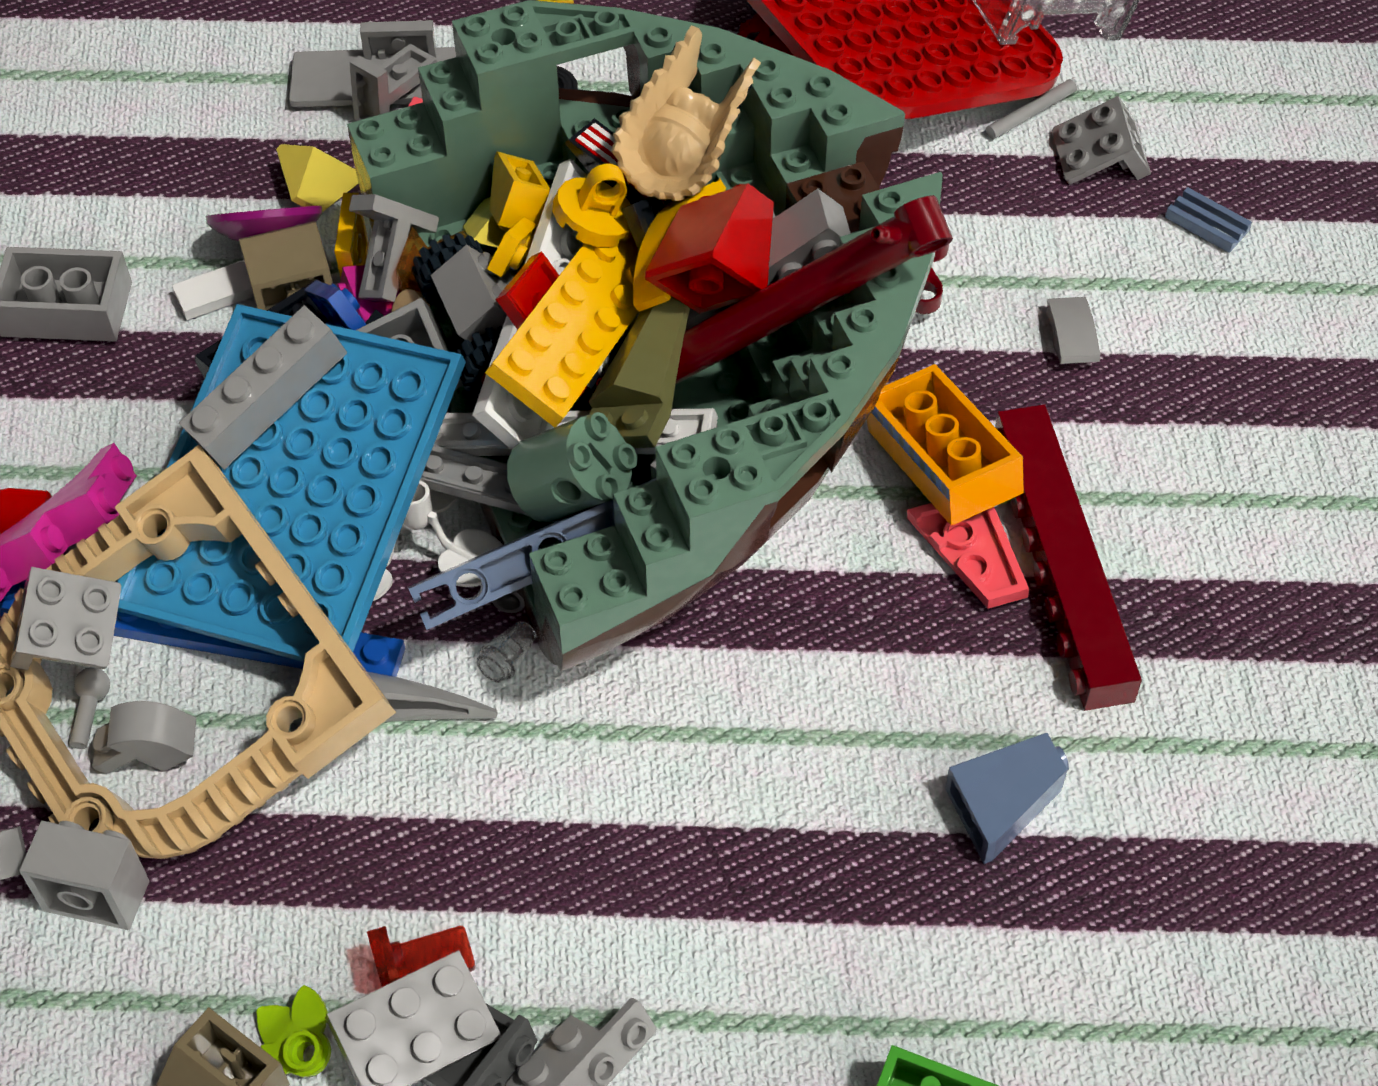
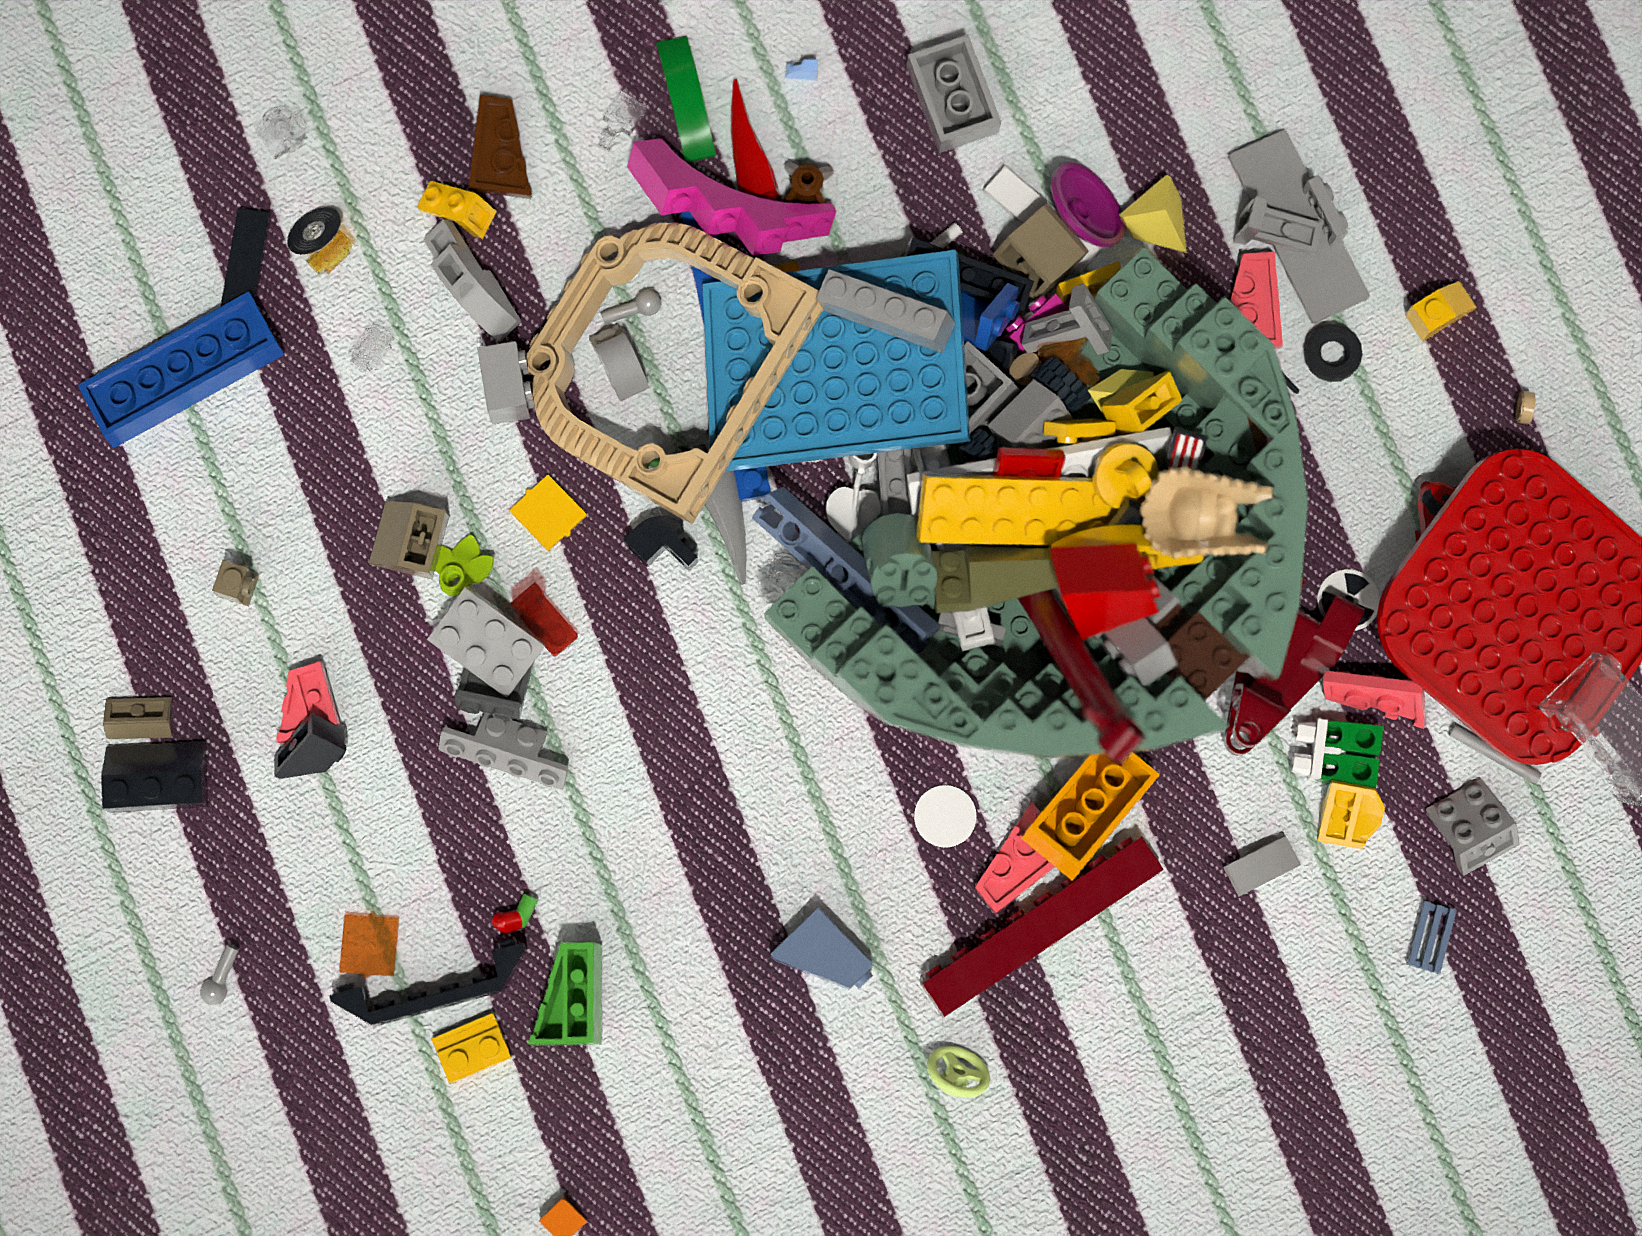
camera: 60 degrees right, 25 degrees up
(57, 464) = (806, 173): none -> reddish brown brick
(66, 619) = (658, 274): light grey bracket -> none
(282, 905) = (548, 513): none -> yellow piece
(389, 774) = (659, 534): none -> black brick
(885, 610) = (945, 816): none -> white sticker
(939, 149) = (1386, 694): none -> coral wing
(981, 221) = (1329, 751): none -> green hips
(1044, 238) = (1350, 814): none -> yellow slope
(1217, 702) = (957, 1075): none -> yellowish green piece

